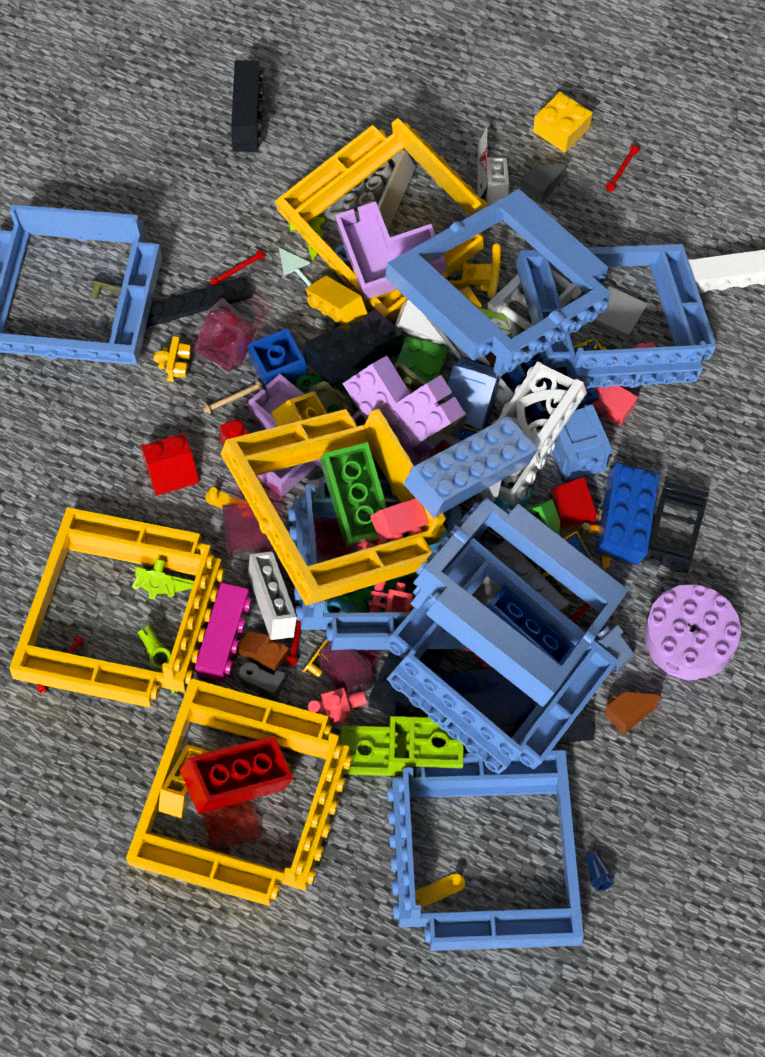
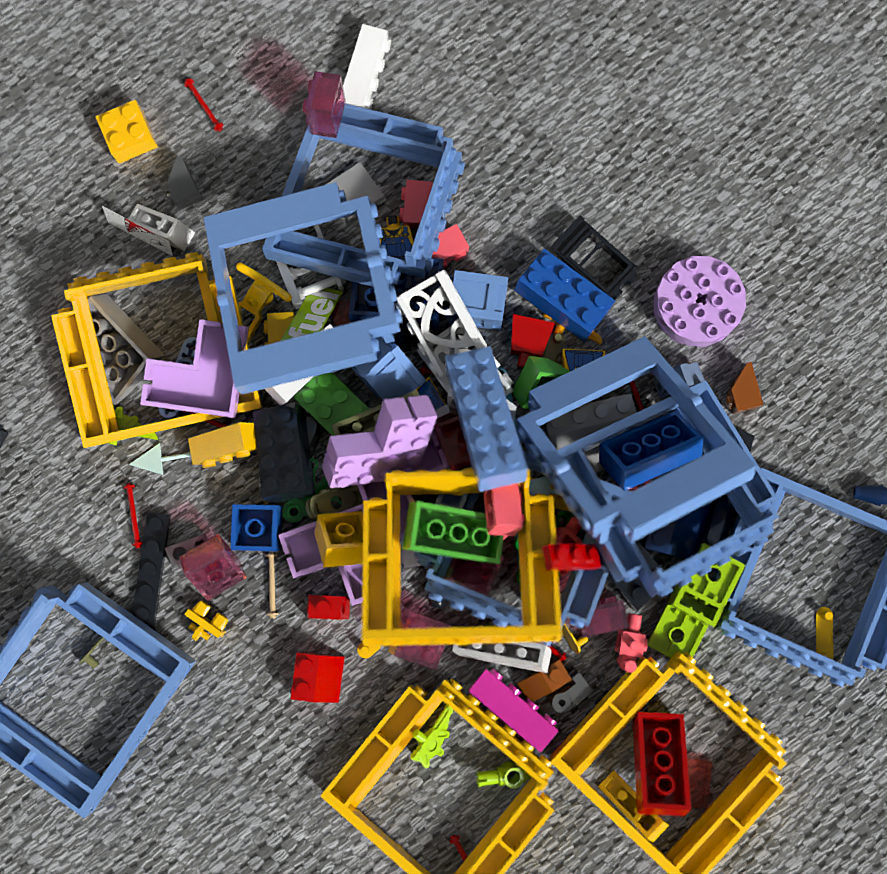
camera: 55 degrees left, 20 degrees up
(386, 587) = (571, 557): none -> red plate
(675, 243) = (324, 104): none -> clear pink brick

